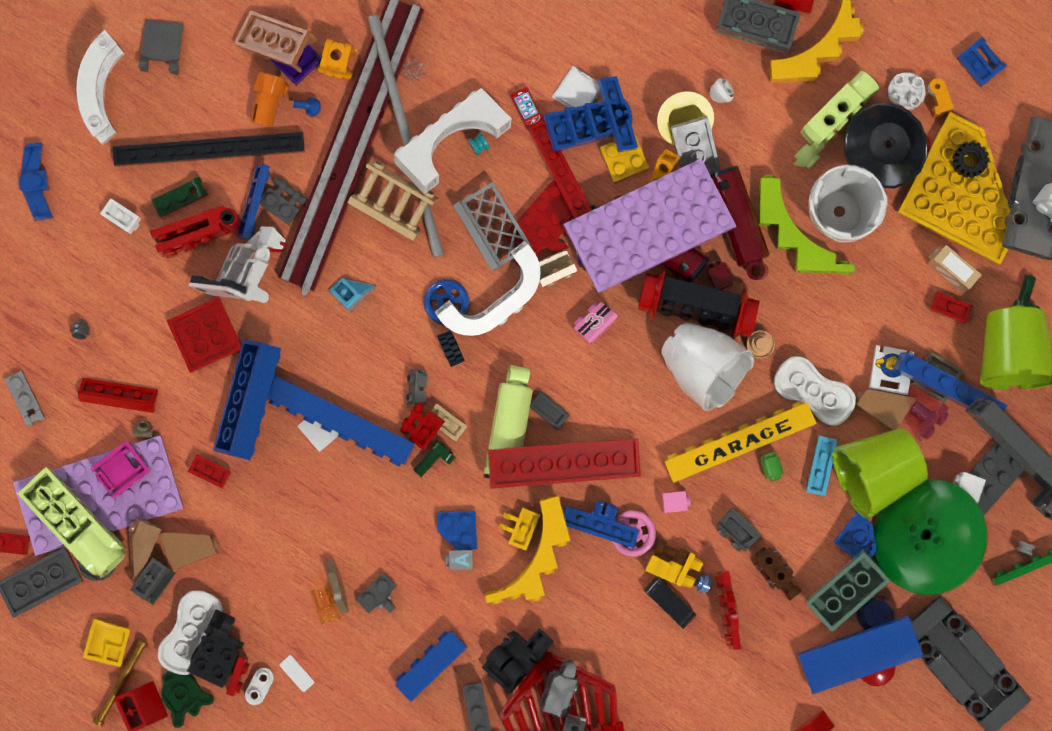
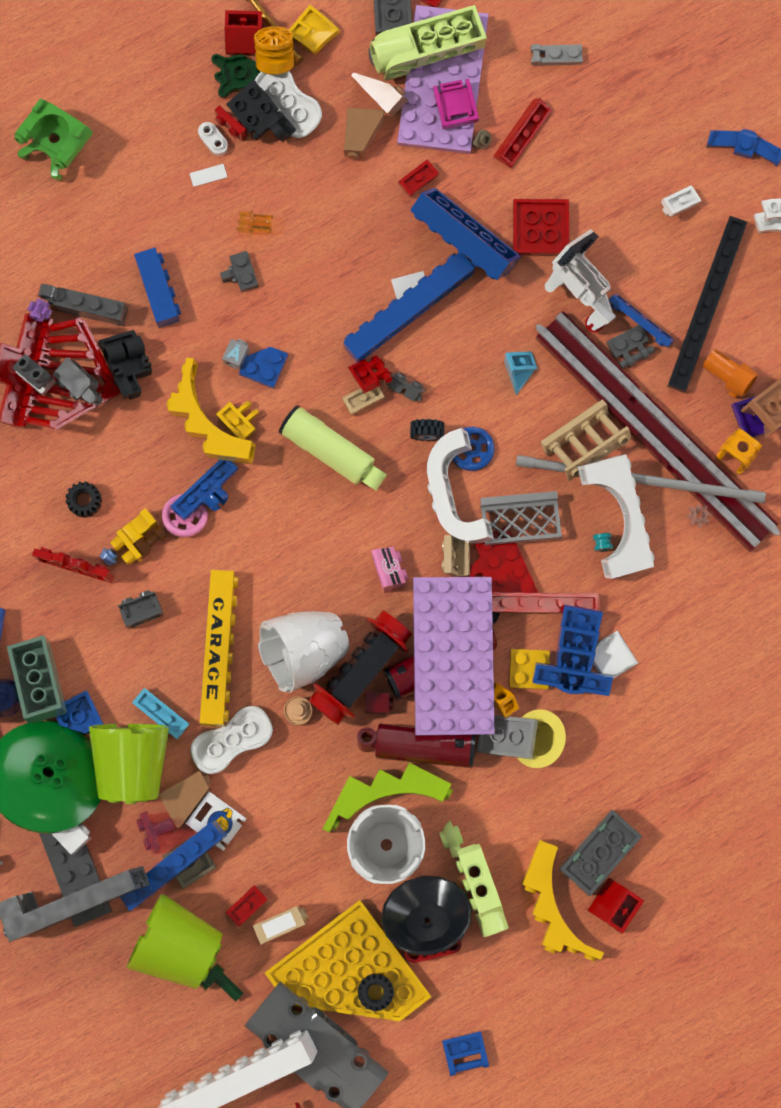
camera: 120 degrees right, 5 degrees down
(80, 329) = (595, 125): dark grey plate -> none
(147, 666) = (274, 50): none -> light orange wheel
(152, 581) = (346, 88): dark grey hinge -> none
(179, 197) = (675, 260): dark green plate -> none
(221, 222) = (637, 278): red hinge -> none
(312, 106) = (705, 410): blue plate -> none
(337, 586) = (265, 240): dark tan tile -> none
(437, 450) = (341, 380): dark green piece -> none
(526, 107) = (618, 602): tile -> none
(549, 410) = (330, 493): dark grey tile -> none
(564, 463) = (275, 480): red plate -> none
(662, 645) = (83, 510): none -> black tyre
(670, 602) = (107, 518): black beam -> none
(675, 502) = (193, 565): bright pink brick -> none
(722, 91) = (550, 789): white cone -> none
(772, 466) = (182, 667): bright green brick -> none
(773, 569) = (90, 628): reddish brown brick -> none
(907, 90) = (470, 965): white dish -> none
(938, 91) = (446, 995): light orange leg -> none

